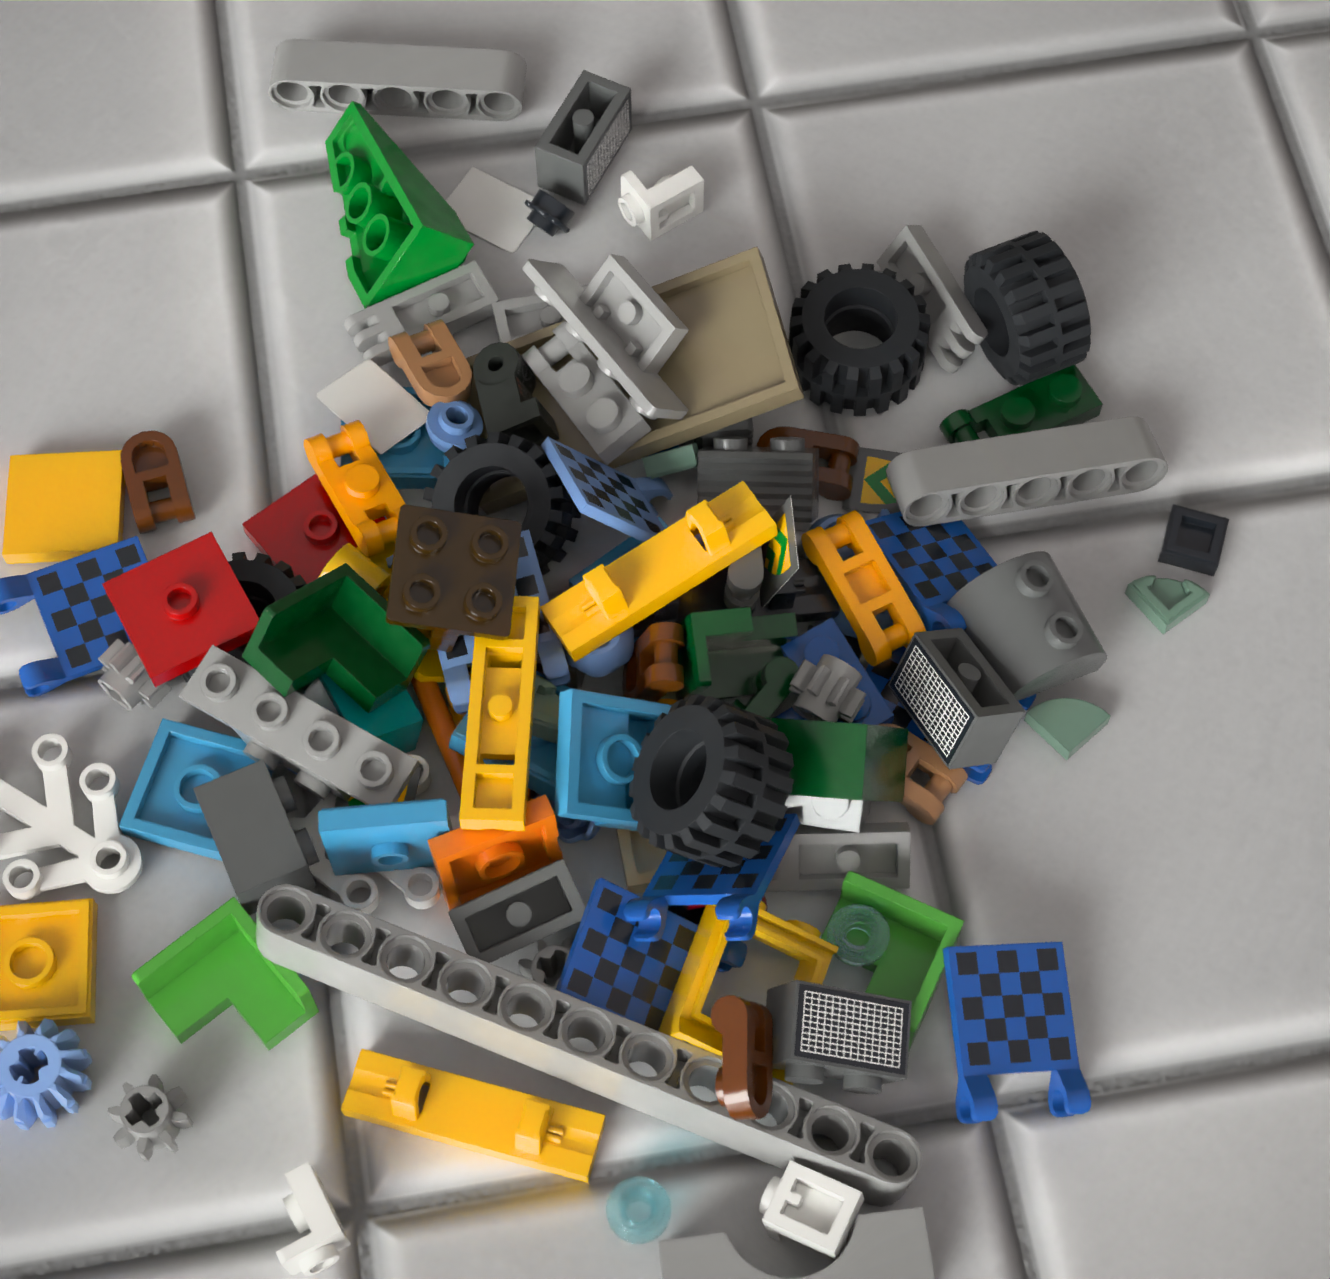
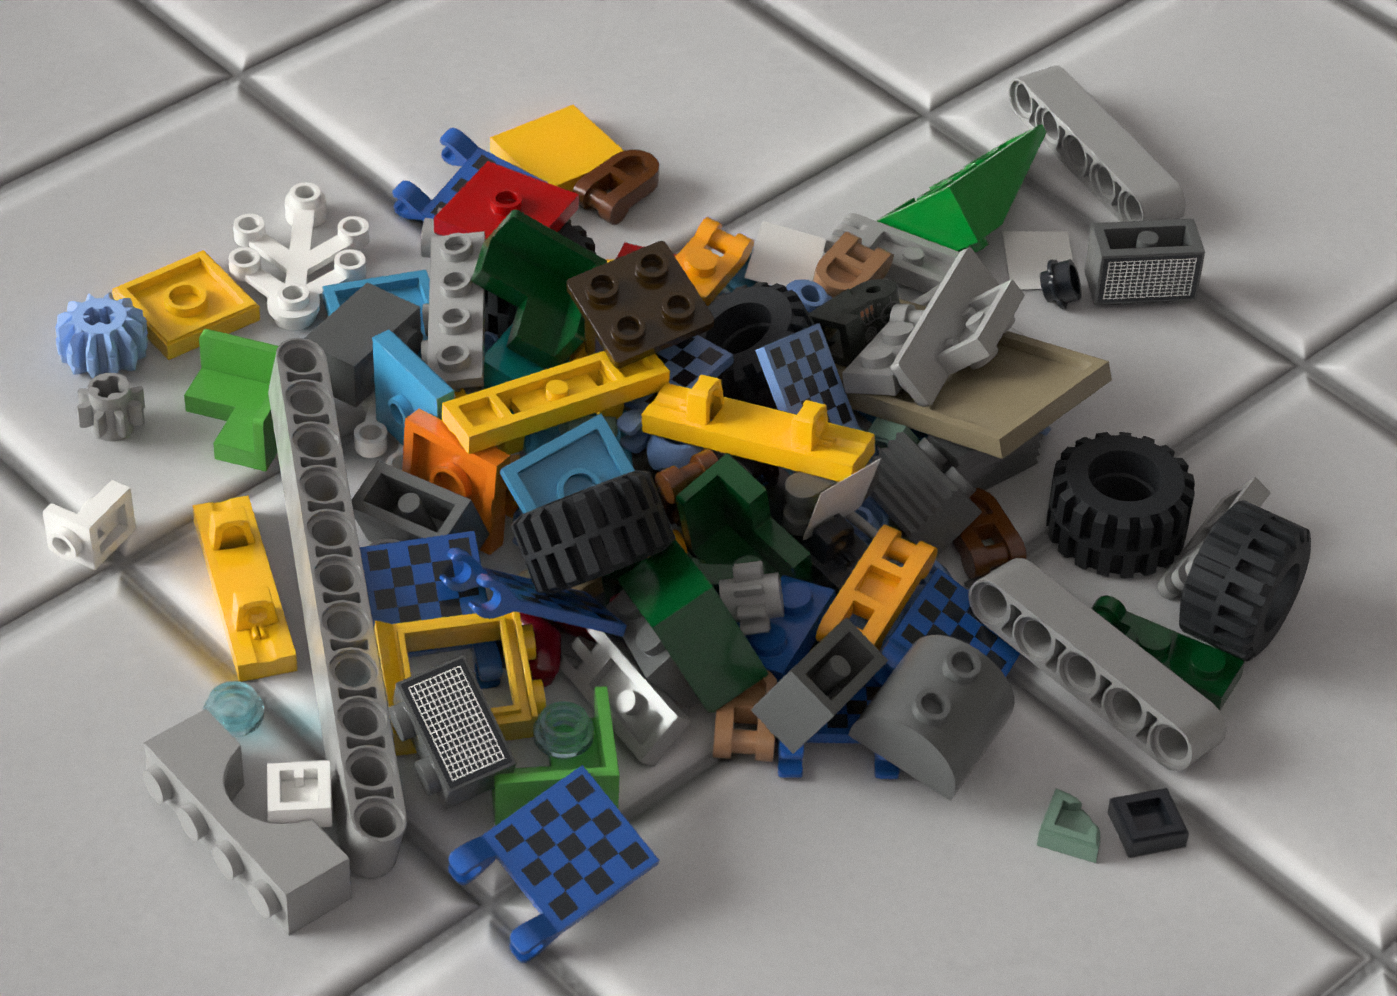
camera: 55 degrees right, 20 degrees down
(664, 205) = (1138, 341): white bracket -> none
(746, 1071) = (360, 670): reddish brown plate -> none
(1067, 723) = (884, 806): sand green tile -> none

